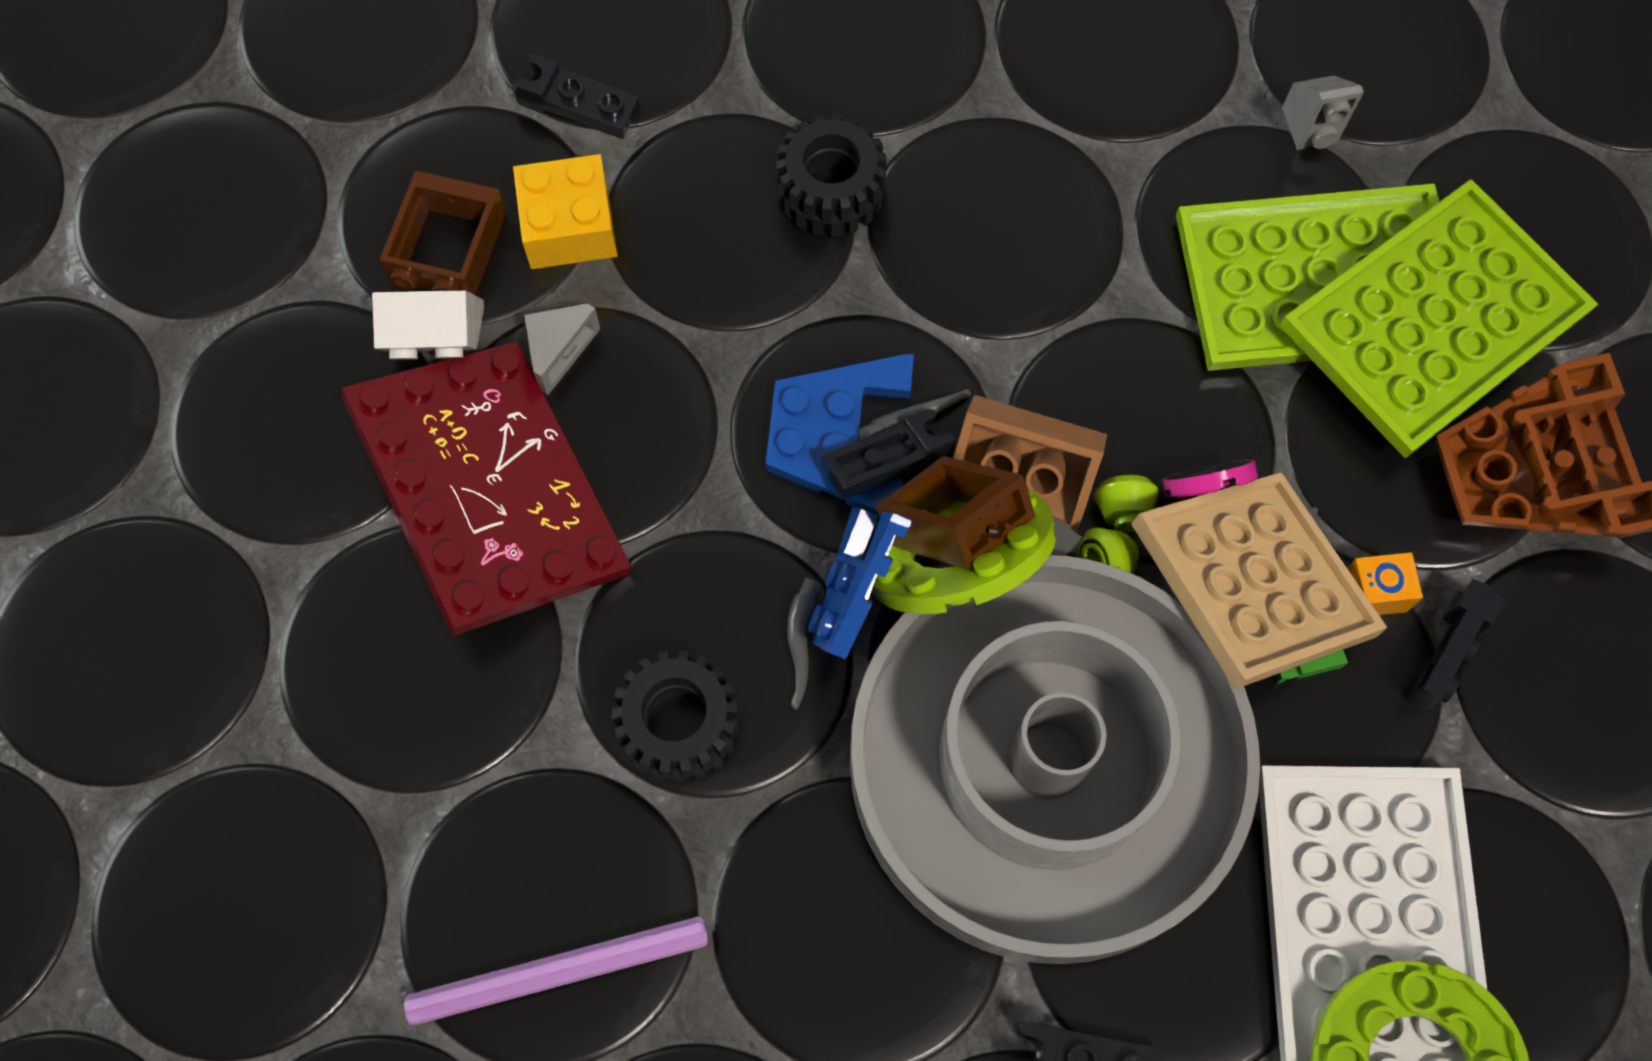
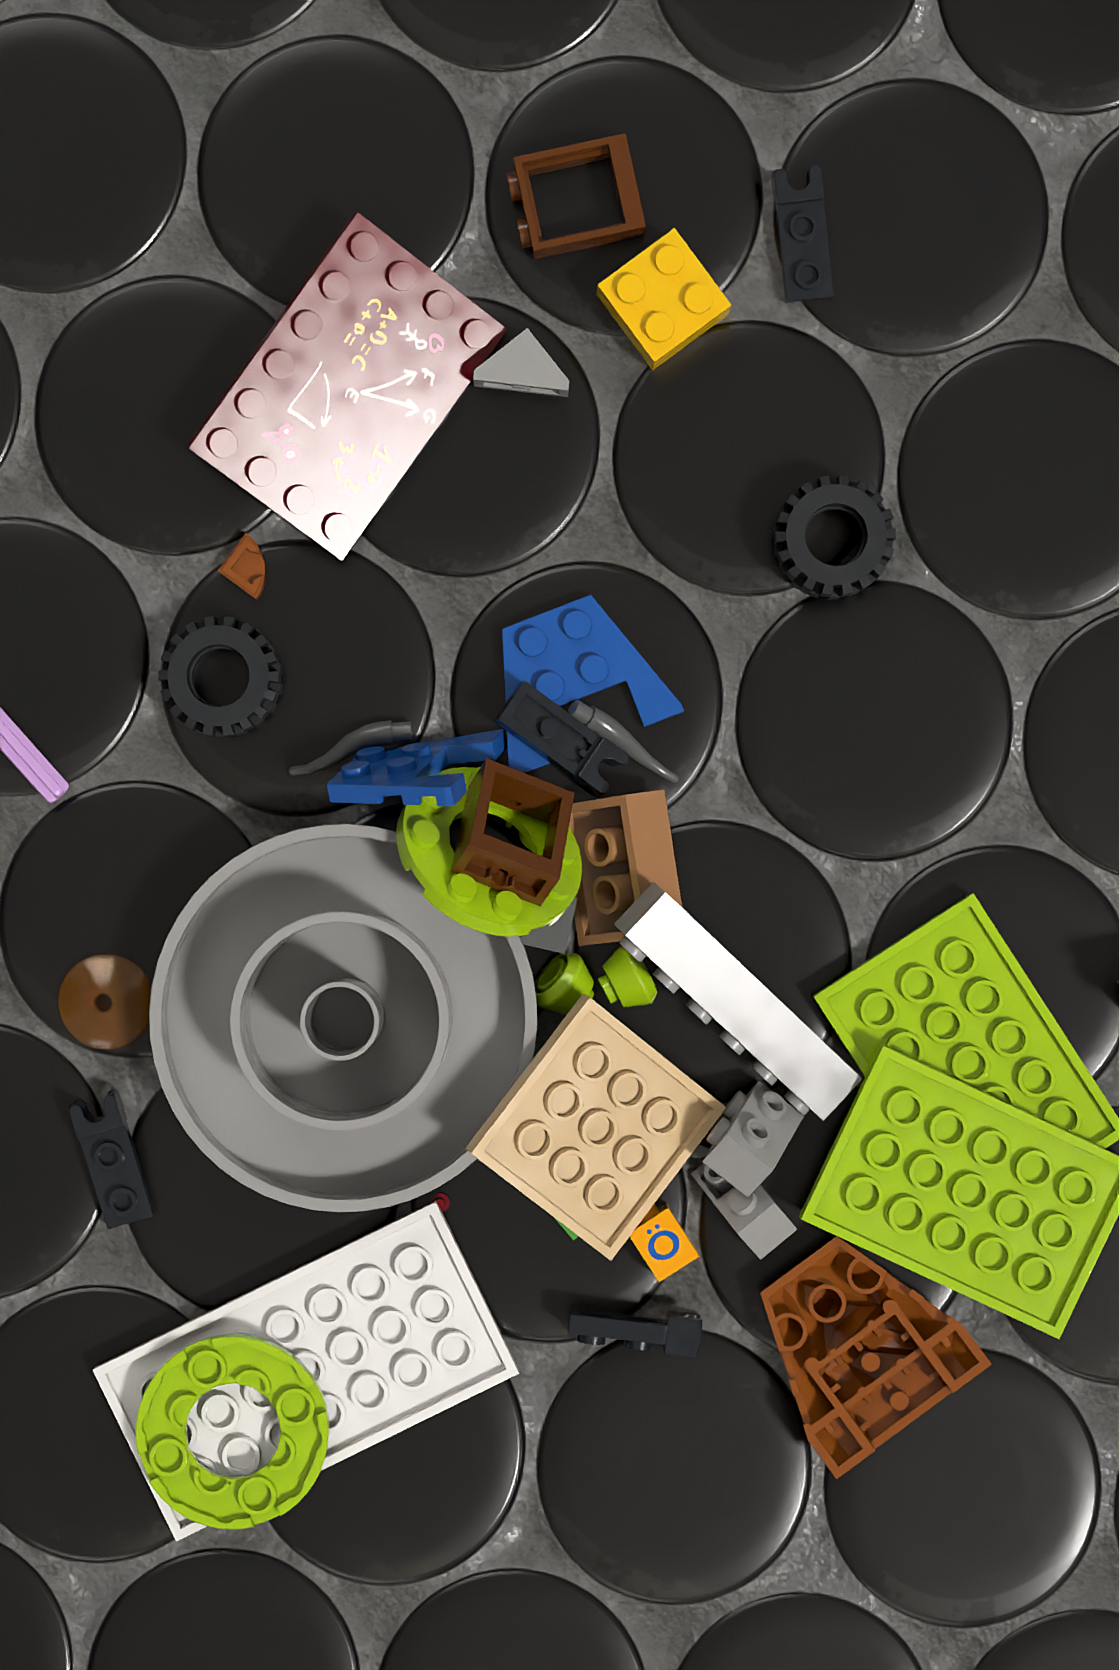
camera: 65 degrees right, 20 degrees up
(426, 322) = (474, 241): white slope -> none
(591, 654) = (246, 567): none -> dark orange tile
(910, 1014) = (129, 995): none -> clear orange dish
(1191, 410) = (737, 1001): none -> brick
(1209, 479) = (684, 1040): dark pink tile -> none
(1322, 457) = (752, 1137): none -> light grey brick
(1371, 500) = (754, 1217): none -> light grey slope

